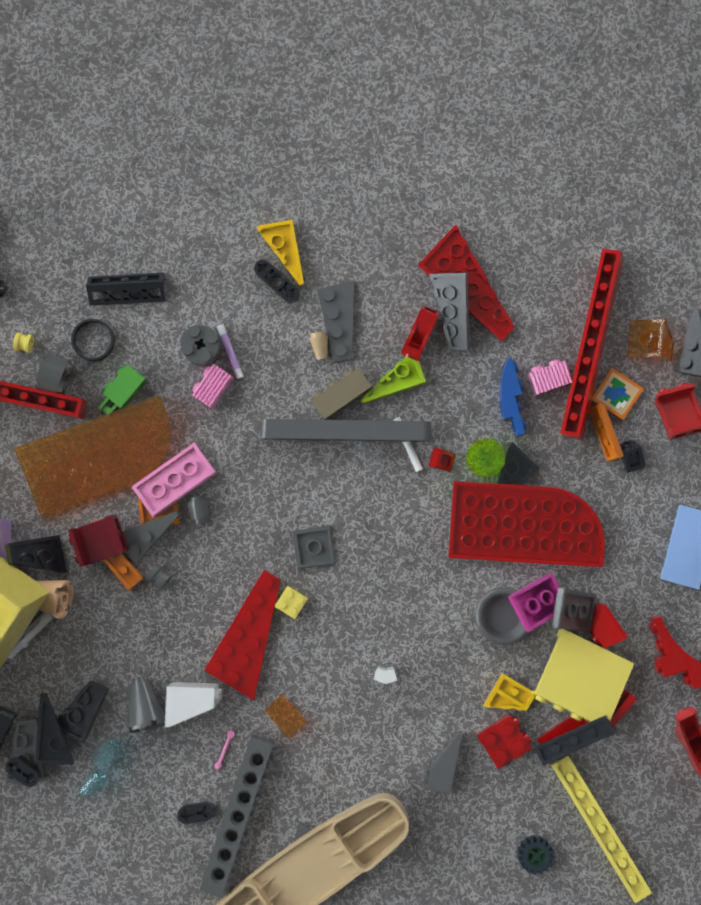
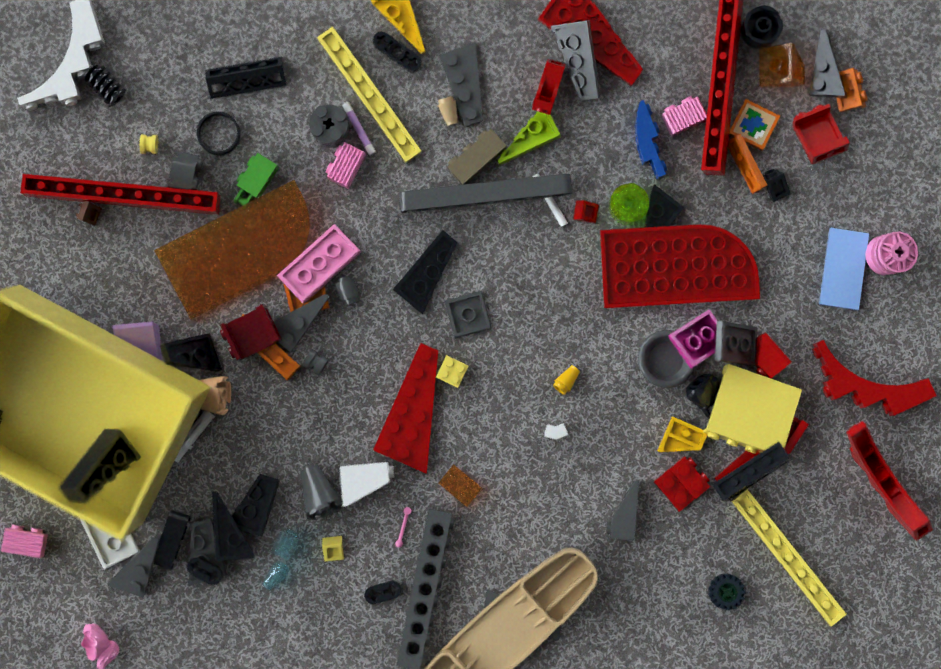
camera: 10 degrees left, 0 degrees up
(152, 762) = (333, 548): none -> light yellow slope
(244, 320) = (369, 94): none -> light yellow plate
(276, 502) = (421, 279): none -> black wing
(402, 624) = (566, 380): none -> yellow cone
(536, 653) = (703, 392): none -> black piece
(646, 298) = (771, 23): none -> black brick

